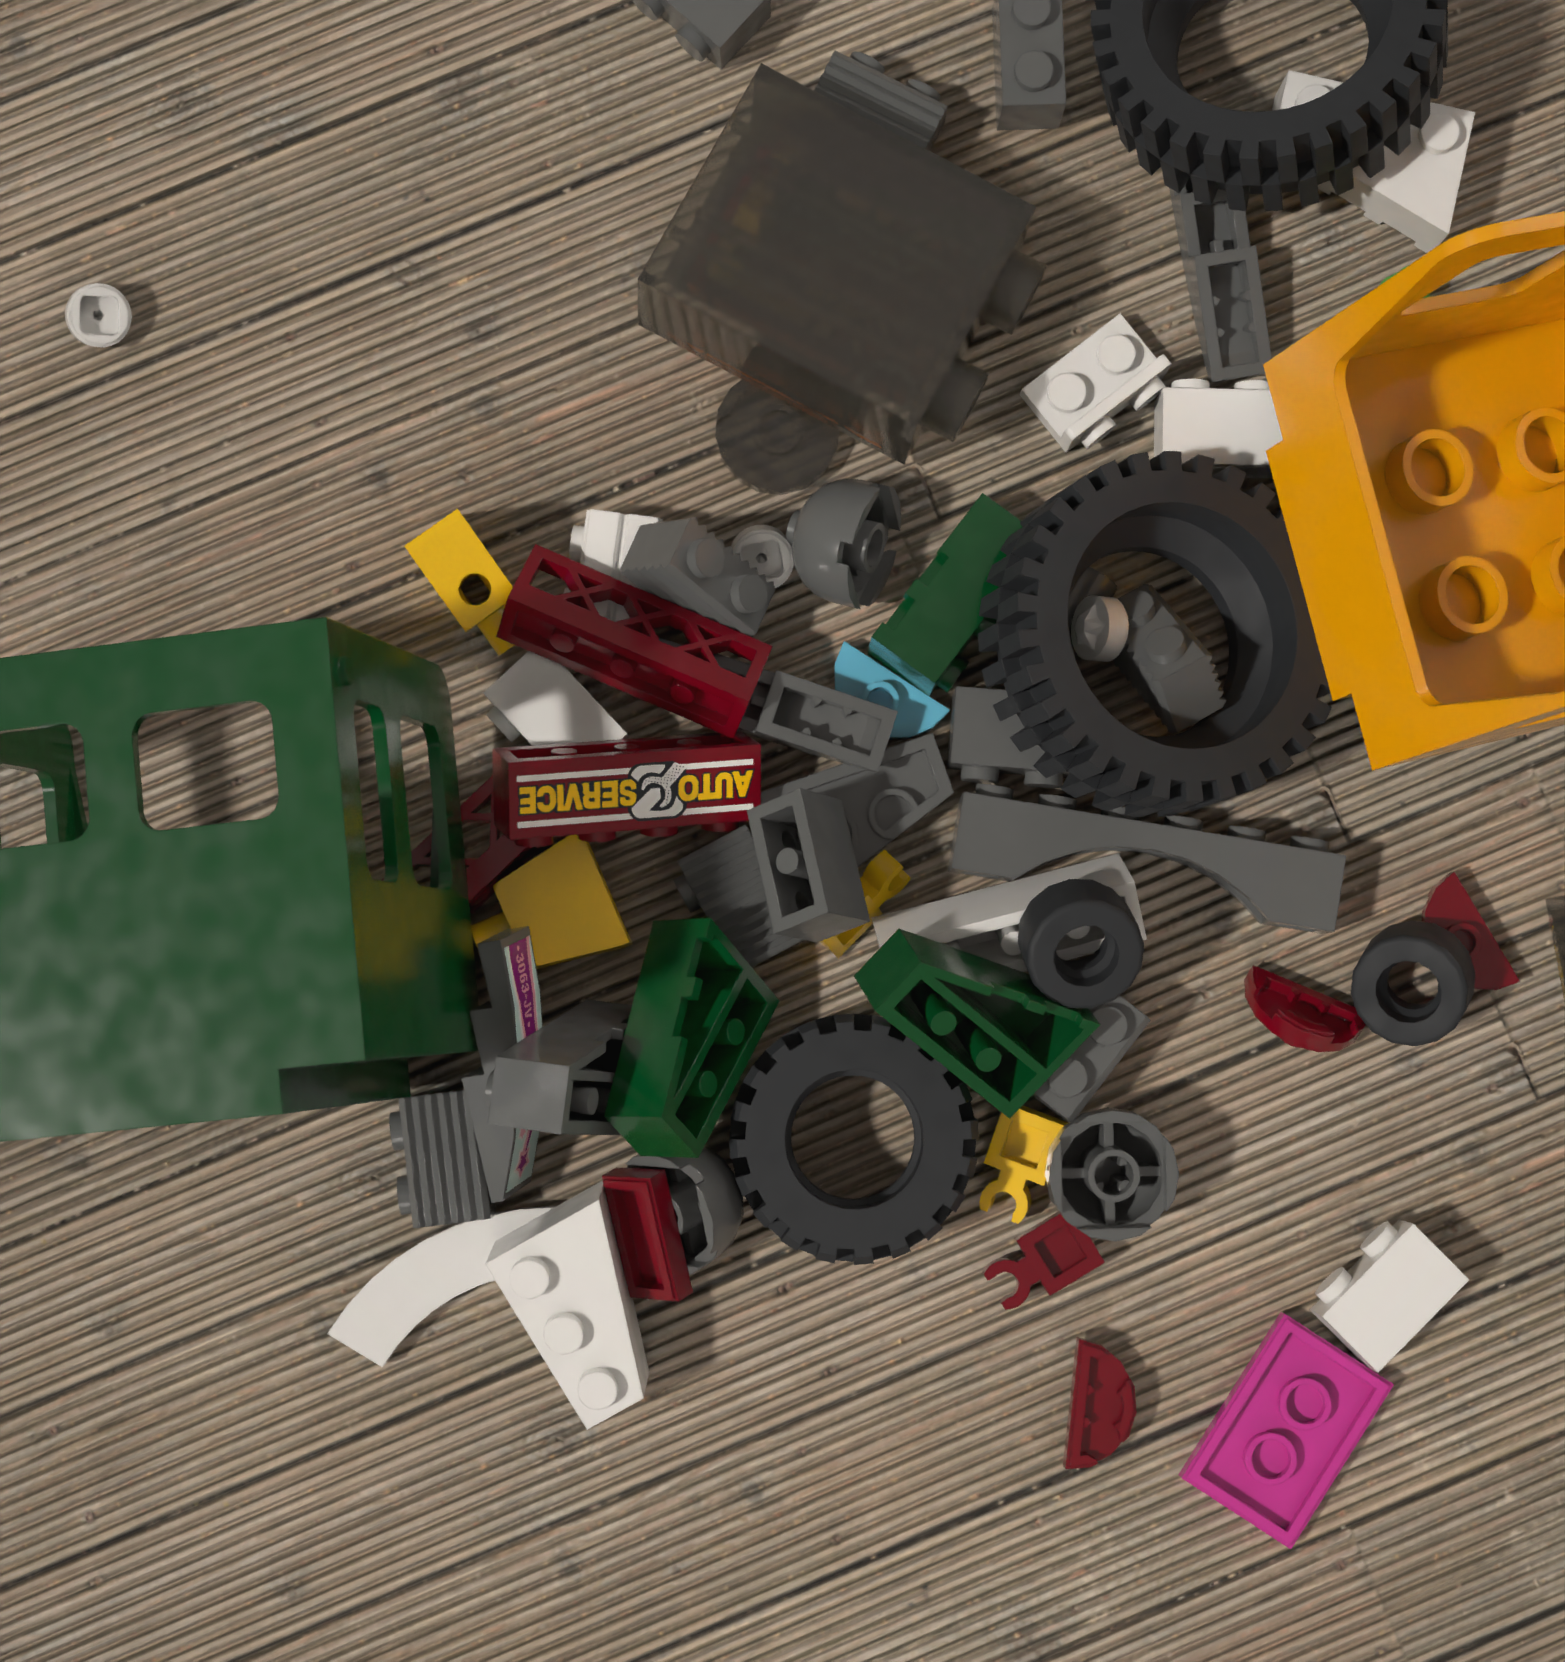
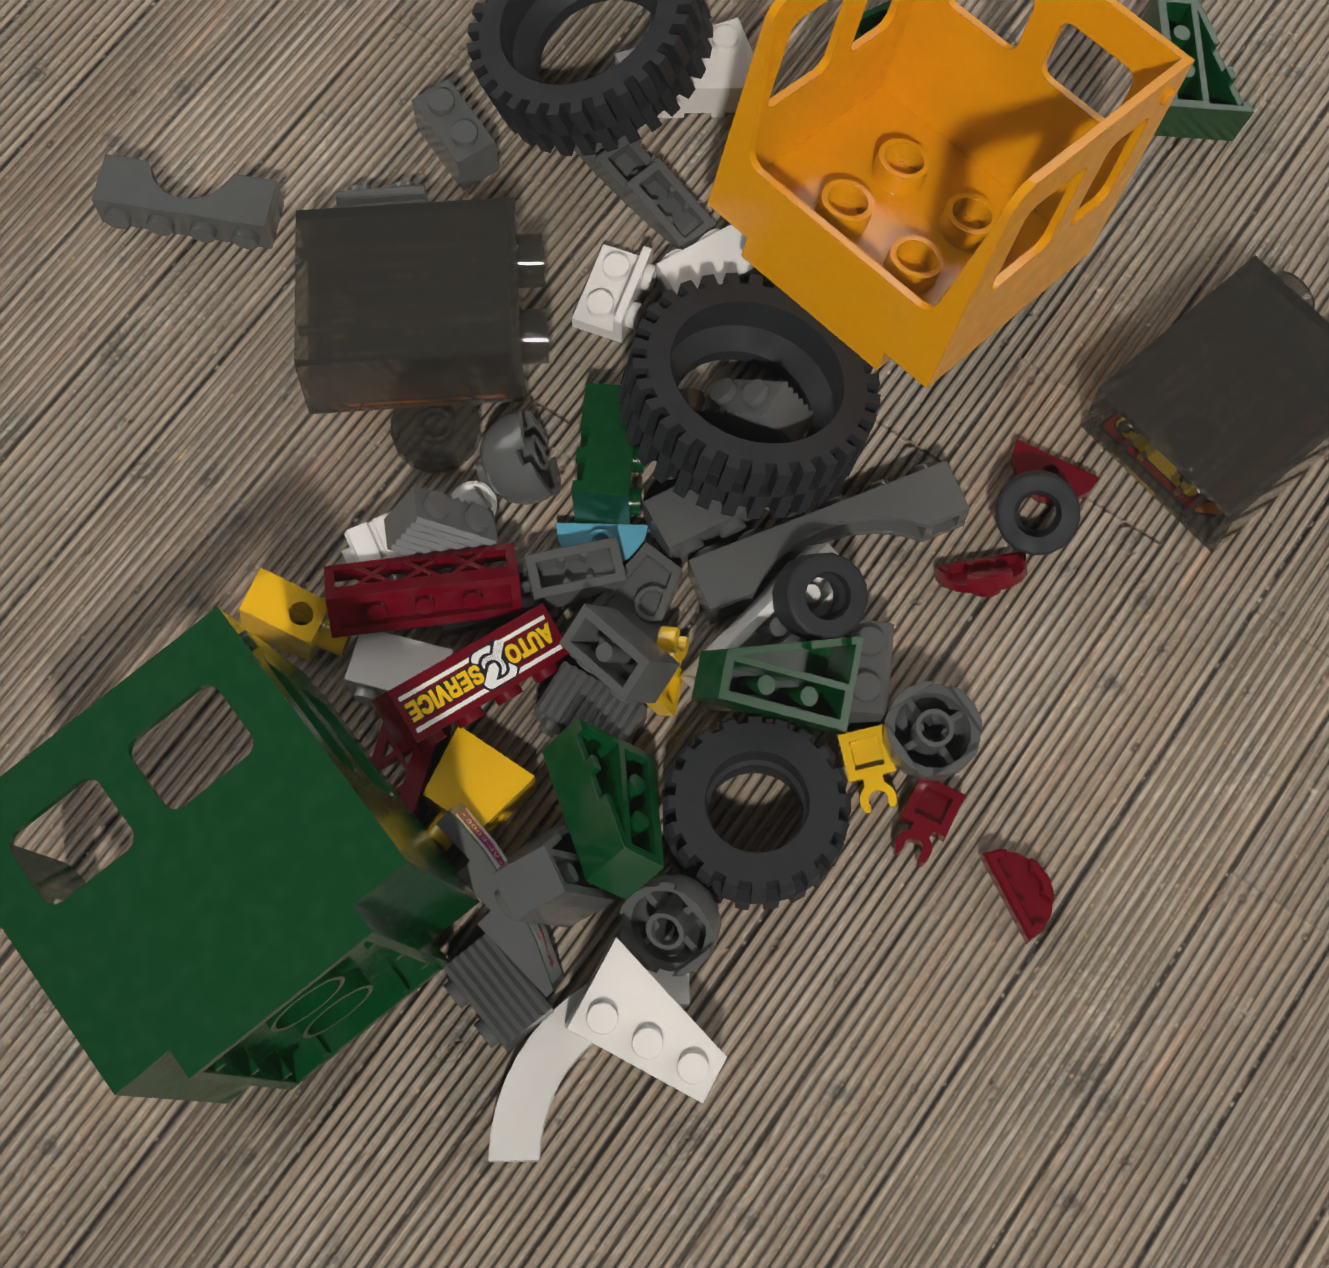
camera: 30 degrees left, 15 degrees down
(647, 1234) = (662, 950): dark red tile -> none
(1099, 628) = (712, 408): white tile -> none
(1285, 1430) = (1149, 834): dark pink tile -> none
(1387, 1293) = (1151, 707): white brick -> none

